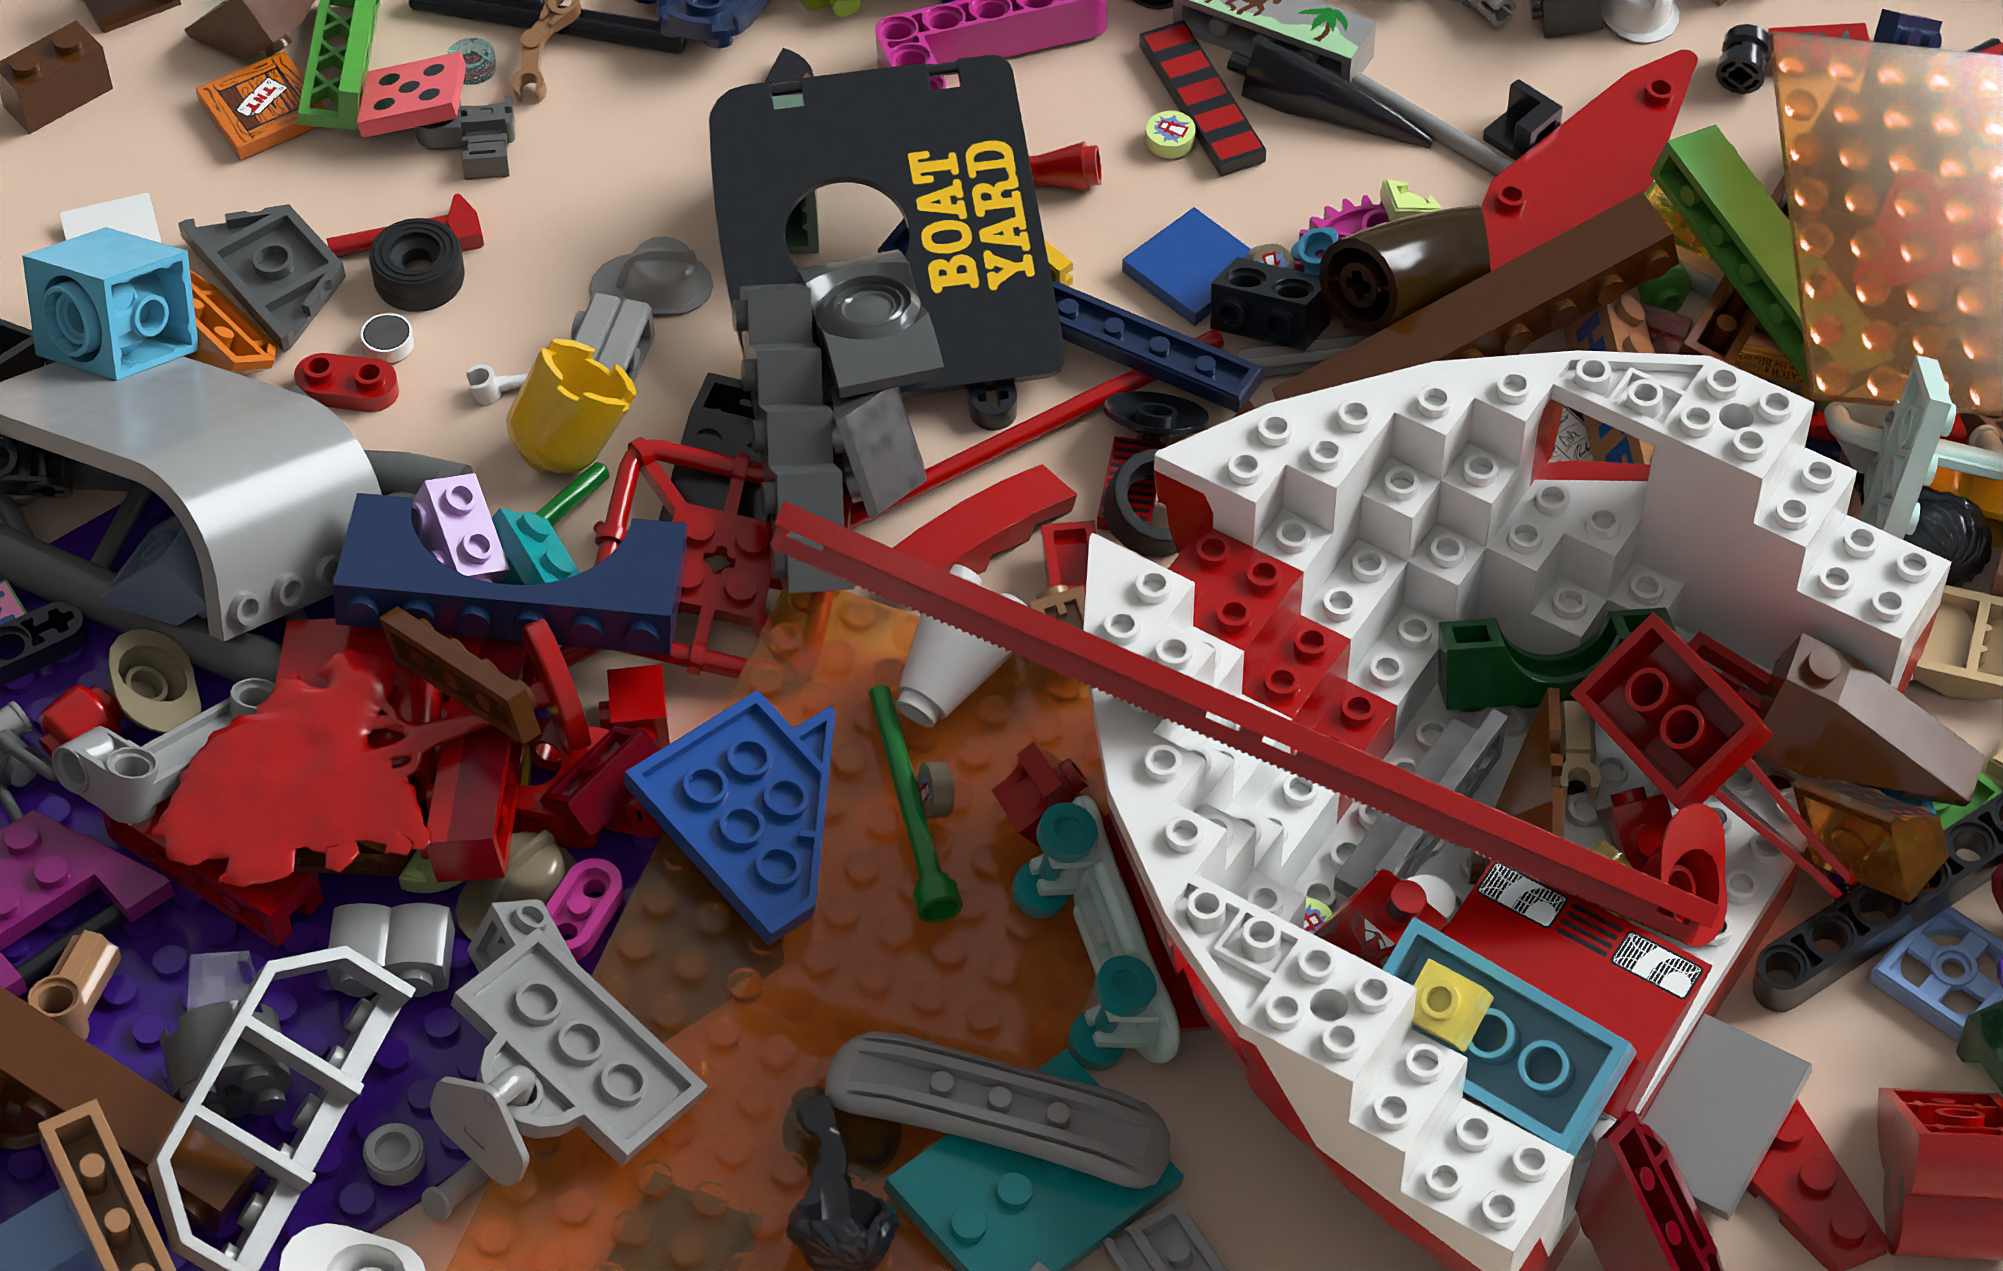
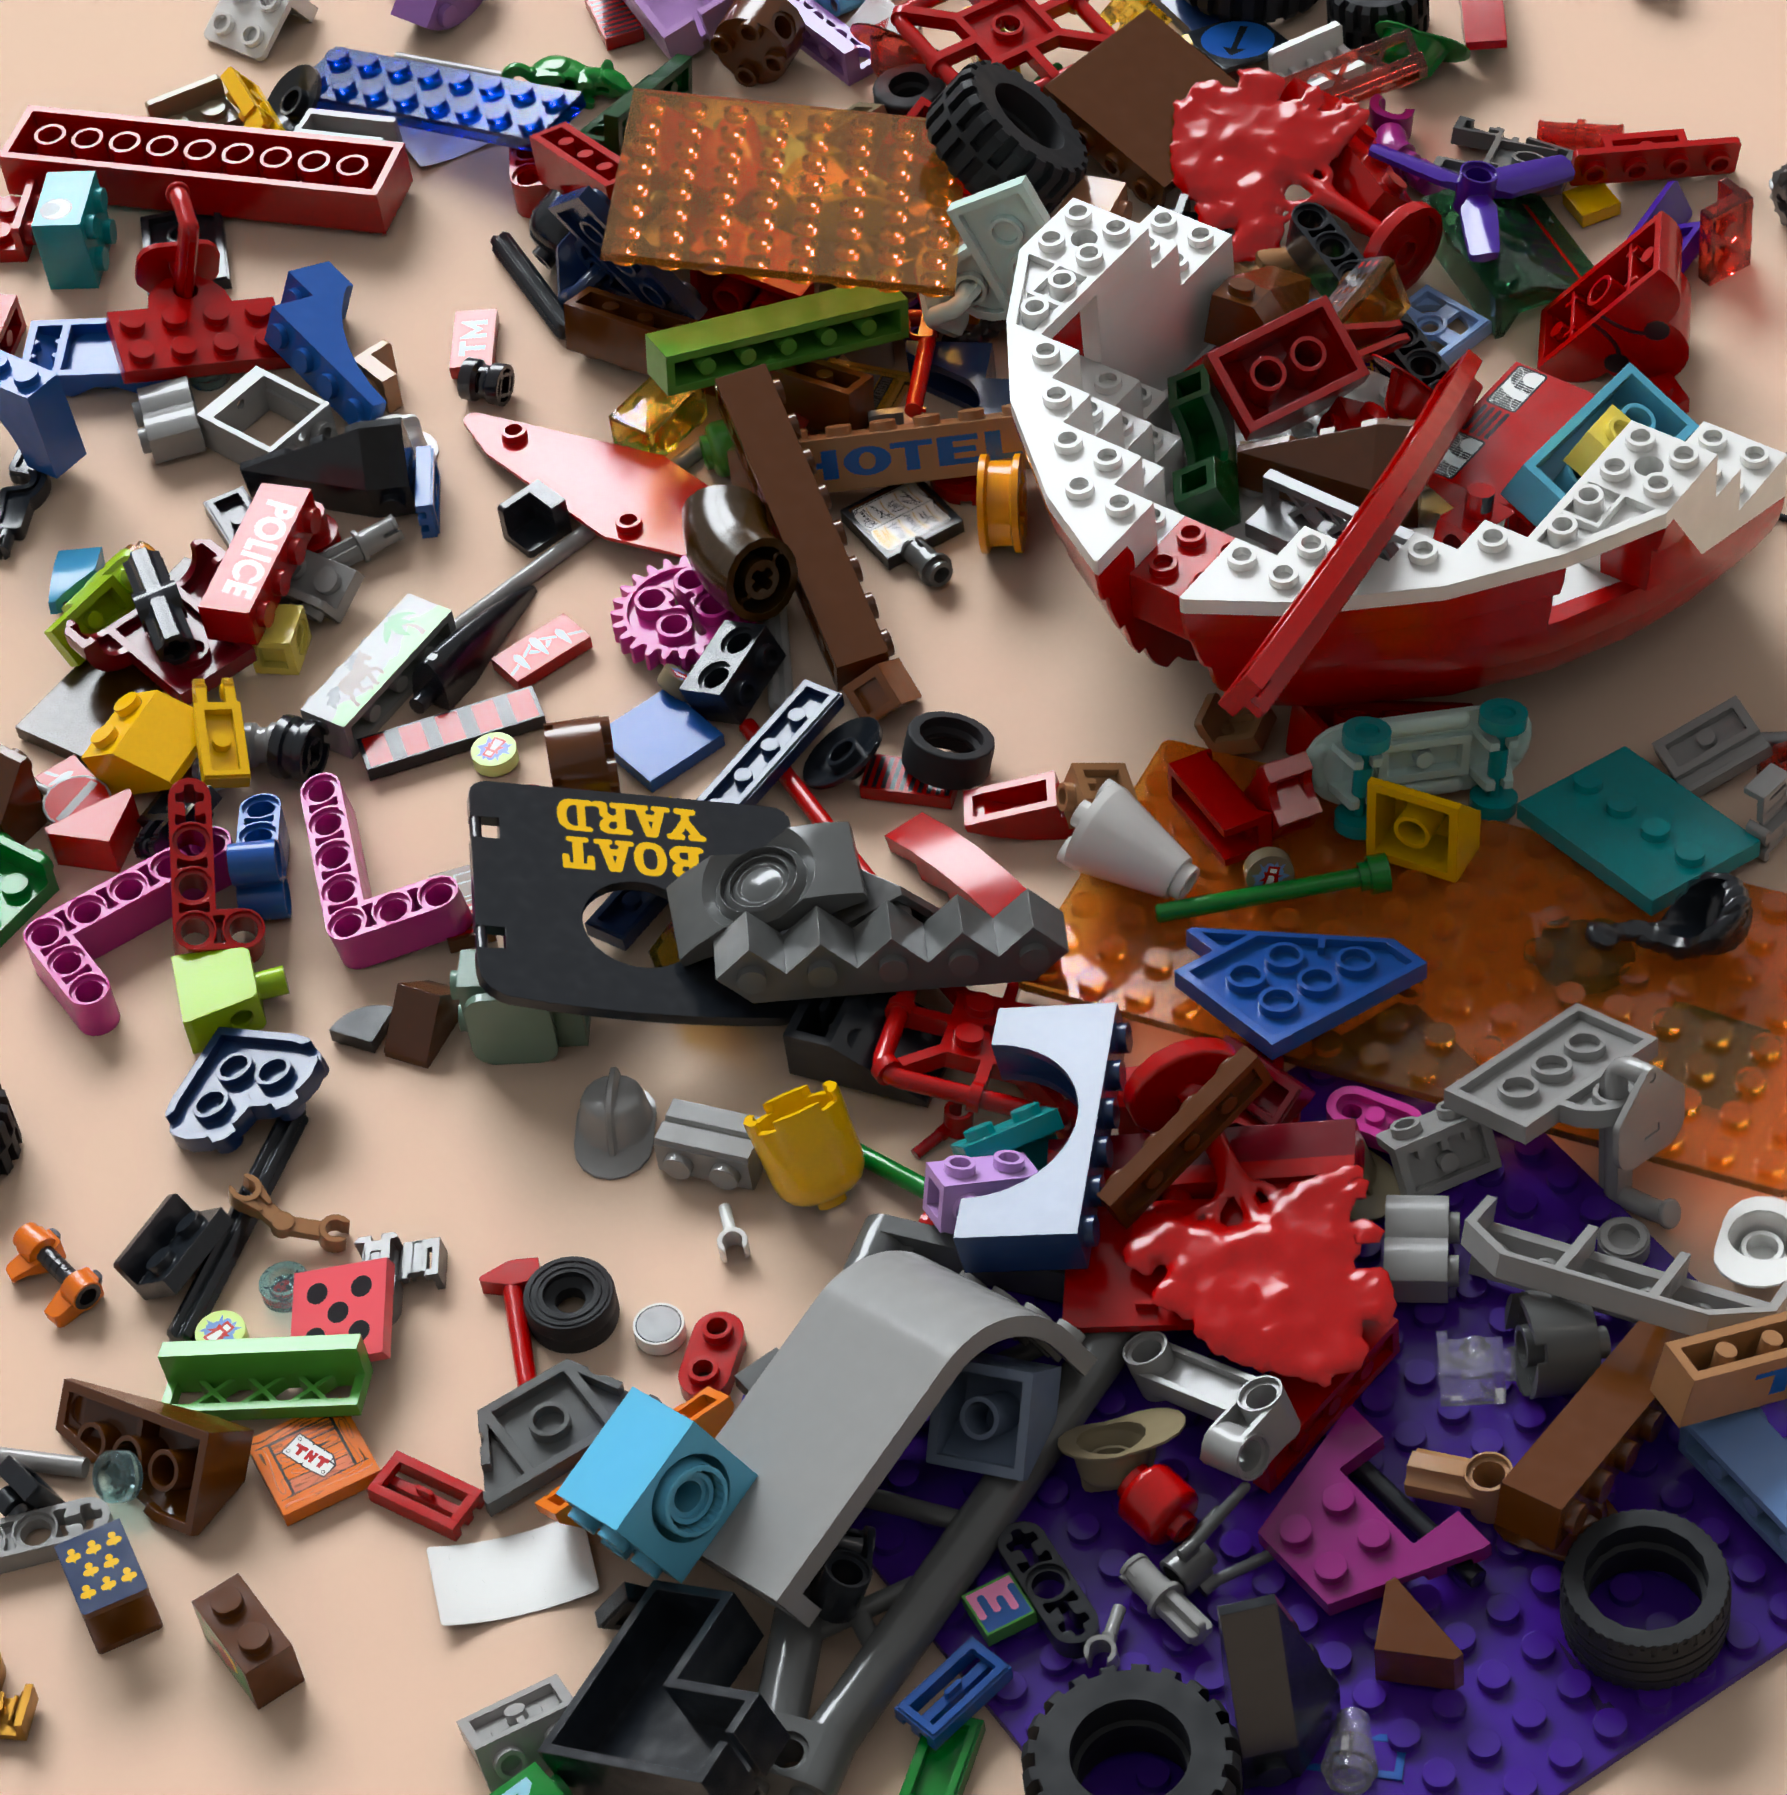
camera: 80 degrees left, 5 degrees down
(220, 191) = (449, 1527): none -> red tile
(415, 23) = (221, 1325): none -> tile
(1000, 1105) = (1581, 839): light grey piece -> none
(1003, 934) = (1420, 830): none -> yellow slope
(1057, 723) = (1217, 808): none -> red window
(1119, 186) = (582, 754): none -> reddish brown brick
(1310, 245) = (686, 619): dark azure plate -> none
(1324, 156) = (542, 652): none -> tile
(1403, 203) = (637, 580): yellowish green tile -> none
(1559, 29) = (427, 491): none -> tile

